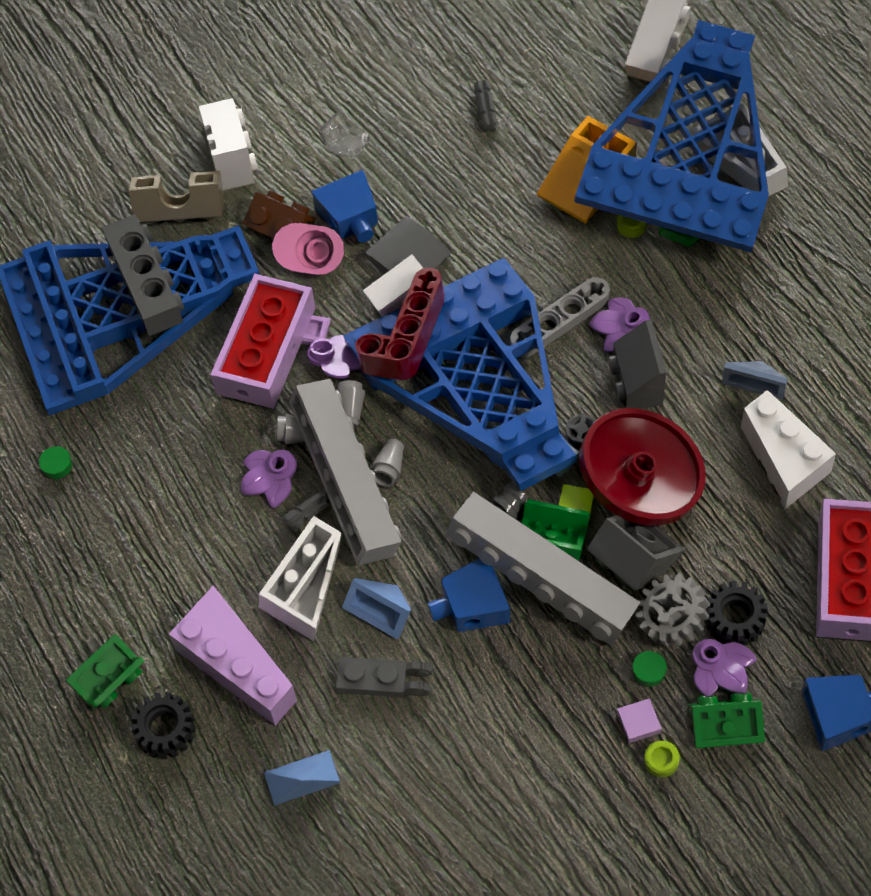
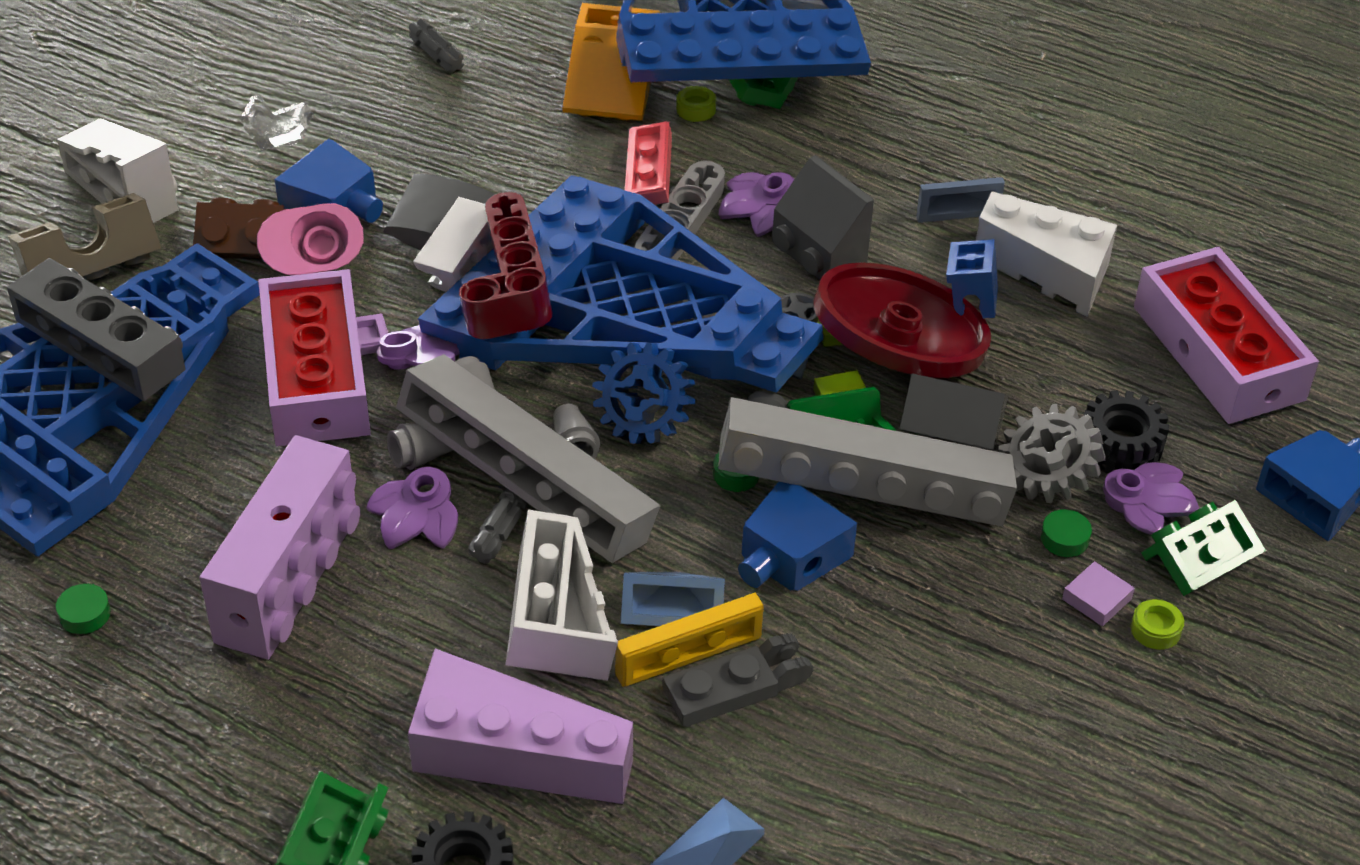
camera: 35 degrees left, 15 degrees down
(171, 474) = (280, 547): none -> lavender brick
(368, 640) = (688, 639): none -> yellow tile
(441, 454) = (640, 410): none -> blue gear
(563, 266) = (649, 161): none -> coral tile
(713, 451) = (973, 271): none -> blue hinge

